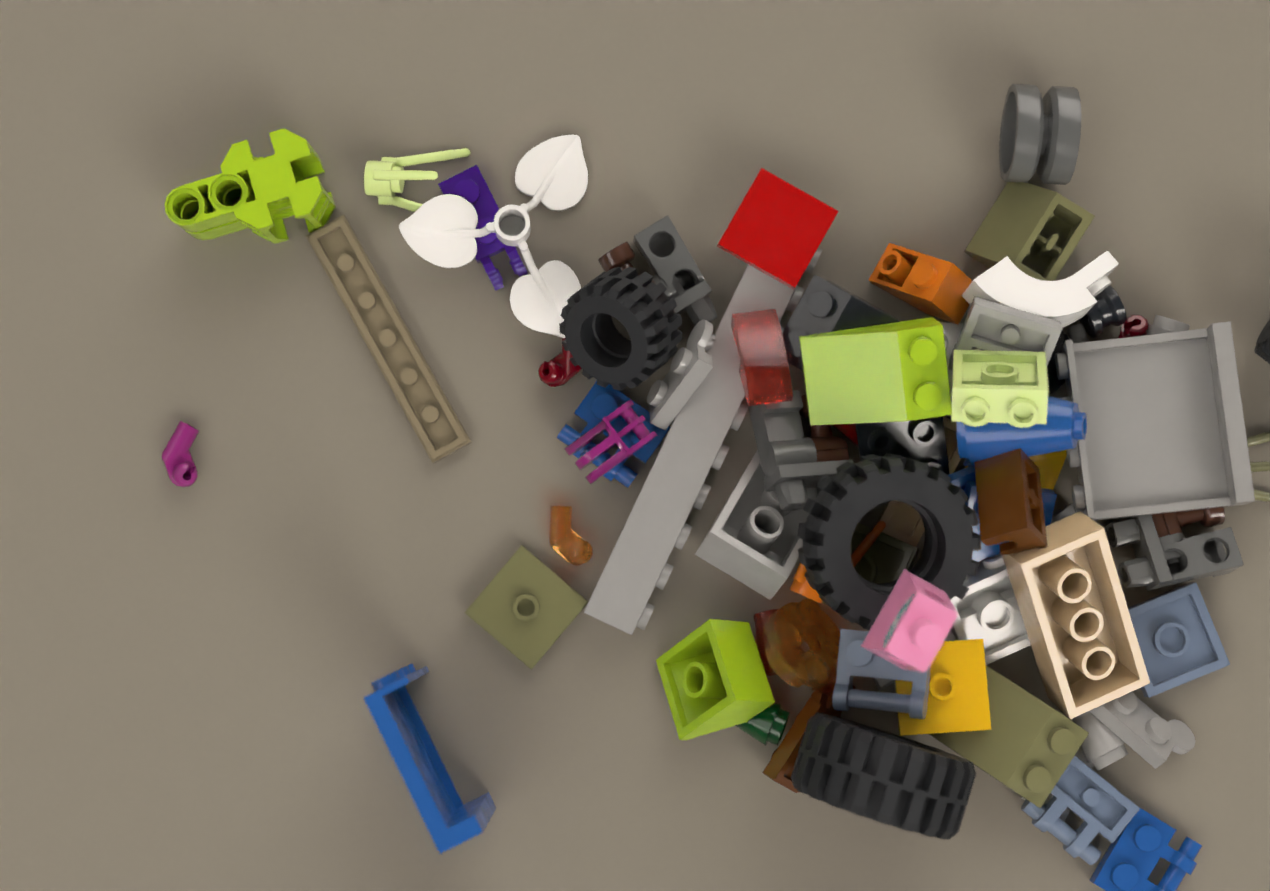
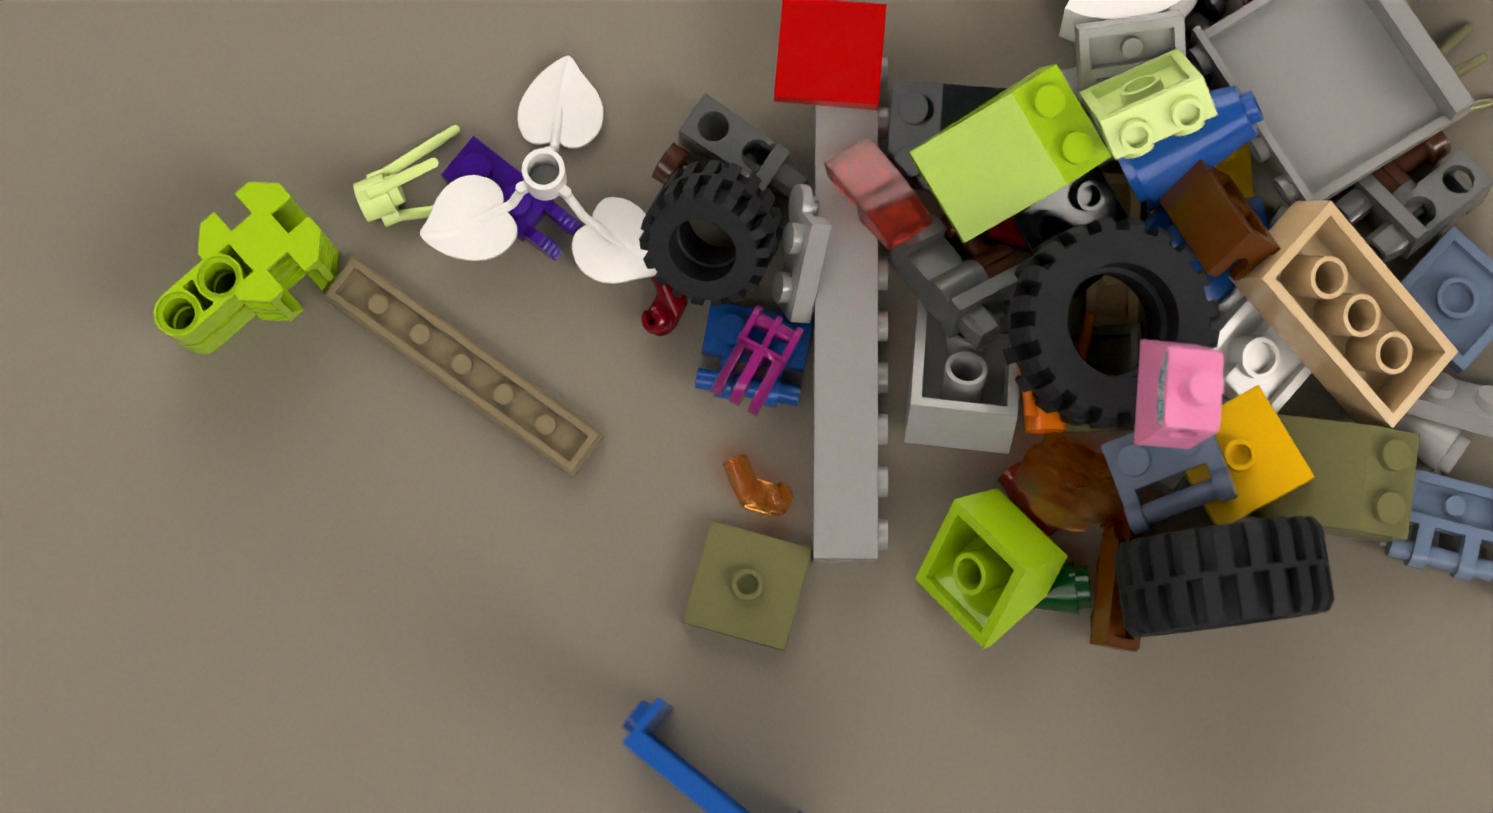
camera: 20 degrees left, 5 degrees down
(178, 458) = (288, 599): magenta arm -> none
(923, 282) = (1009, 42): orange slope -> none

